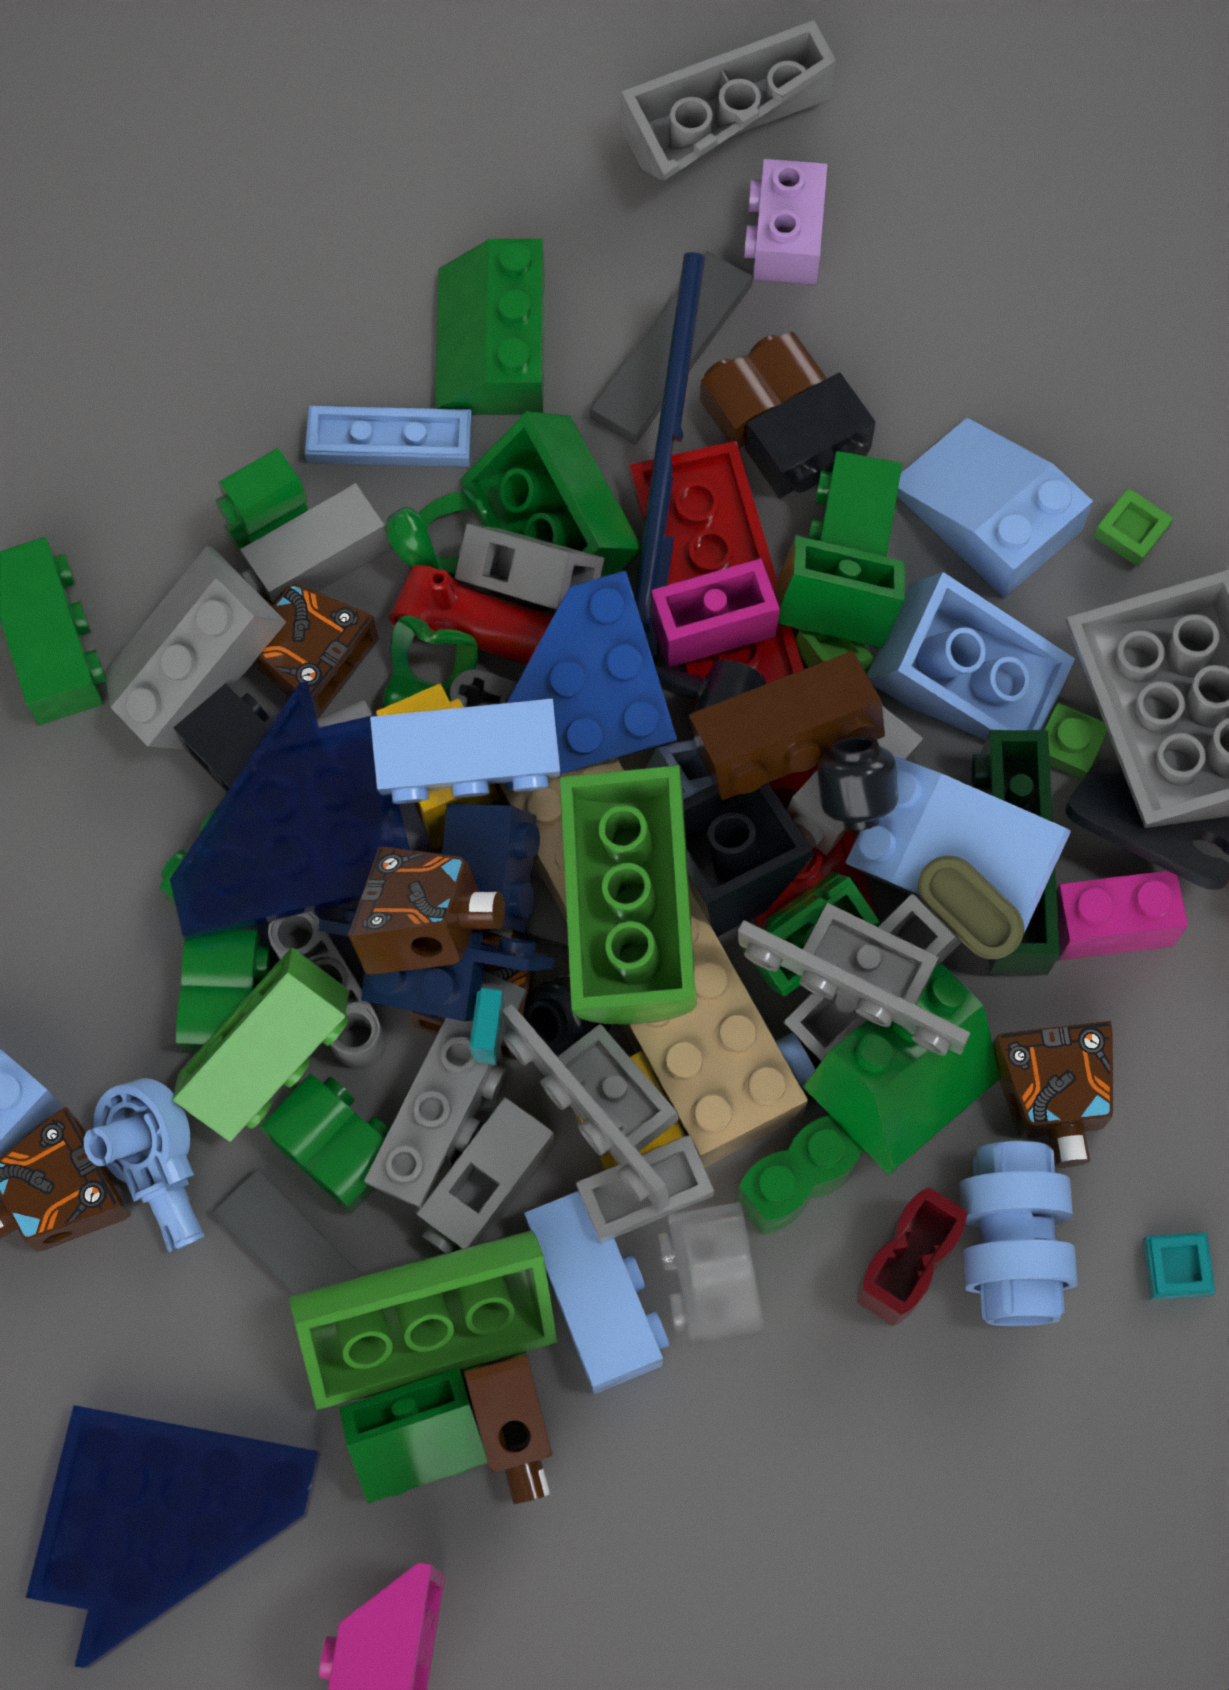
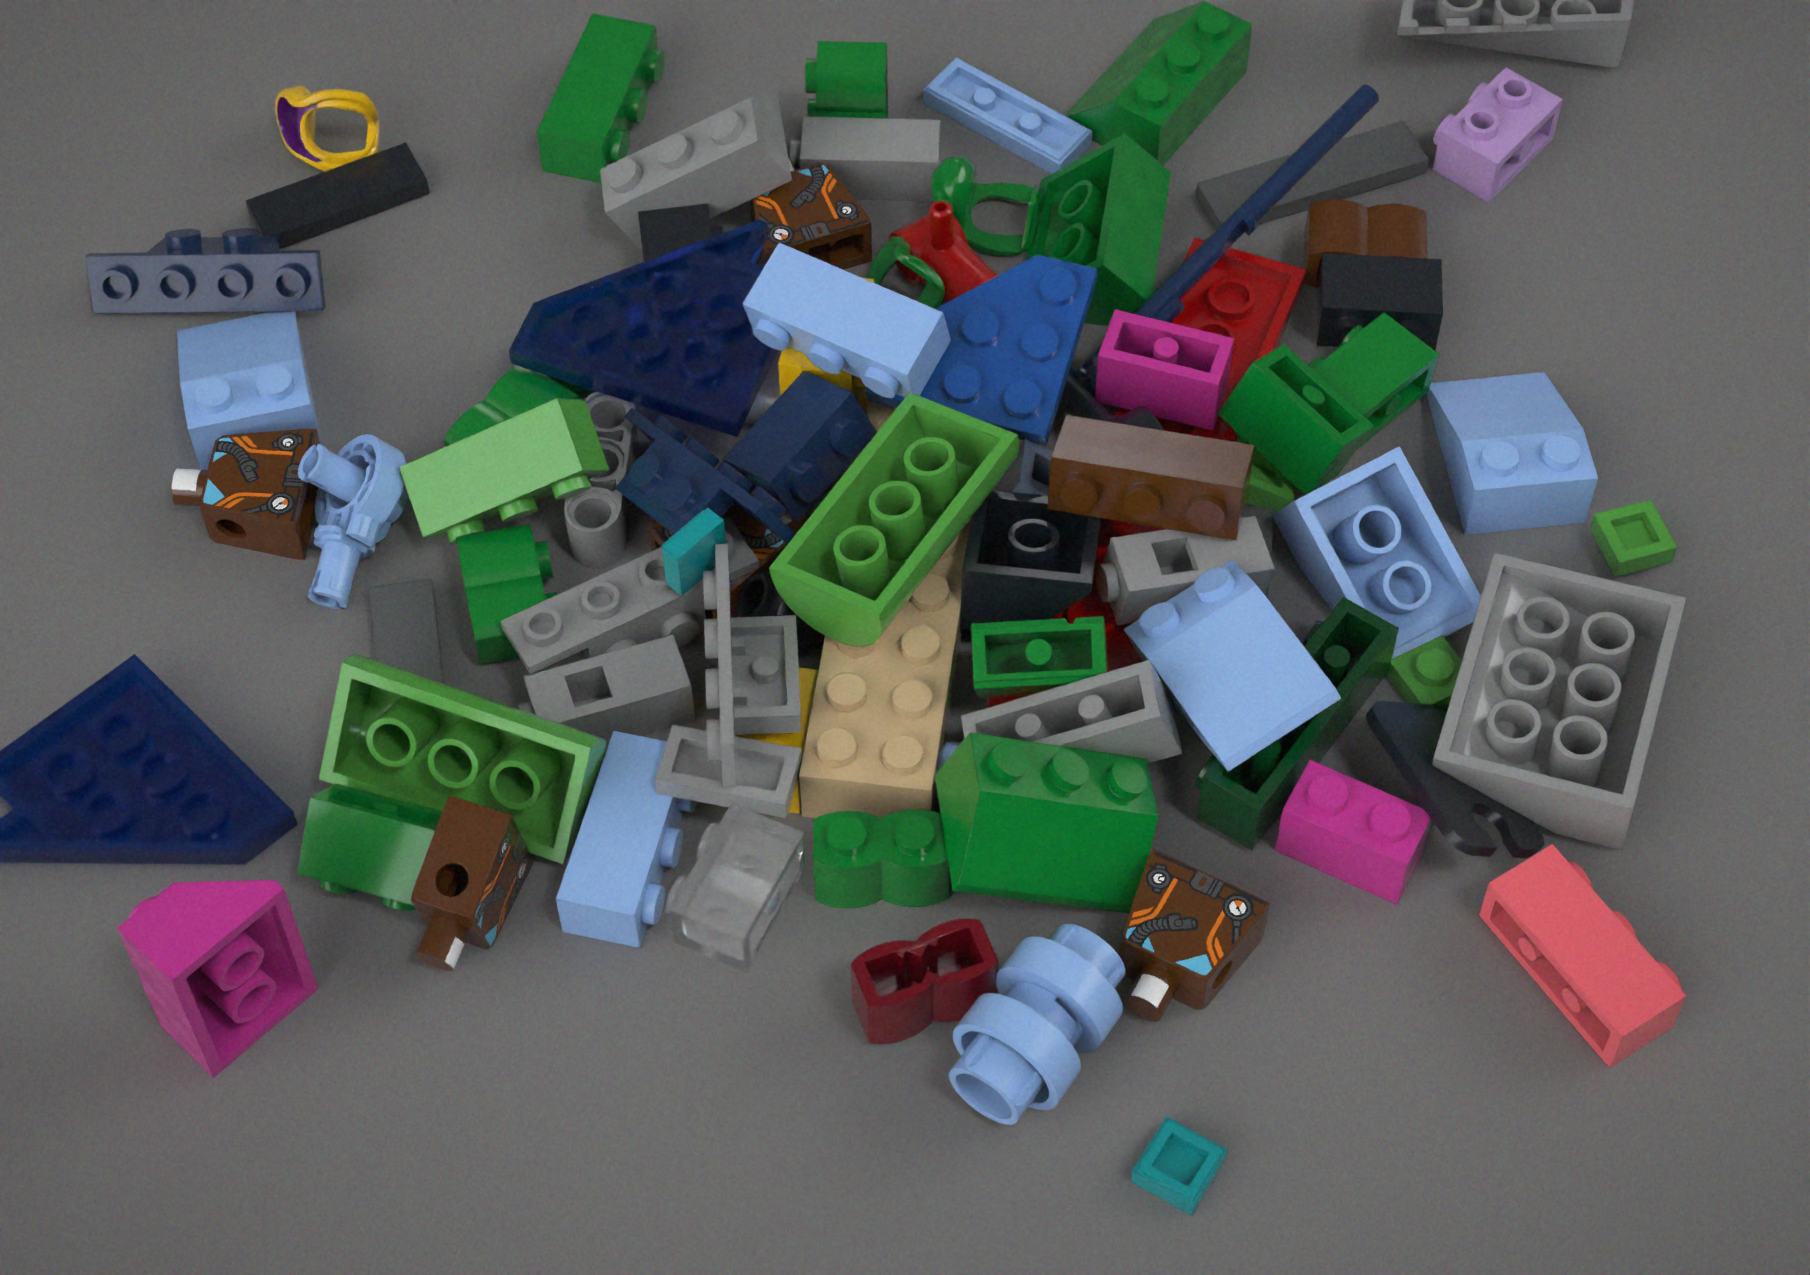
camera: 35 degrees right, 15 degrees down
(419, 911) = (703, 423): reddish brown torso -> none
(523, 565) = (1014, 235): light grey brick -> none
(857, 782) = (1171, 546): black head -> none
(864, 967) = (1054, 684): light grey bracket -> none
(971, 907) = (1198, 709): olive tile -> none

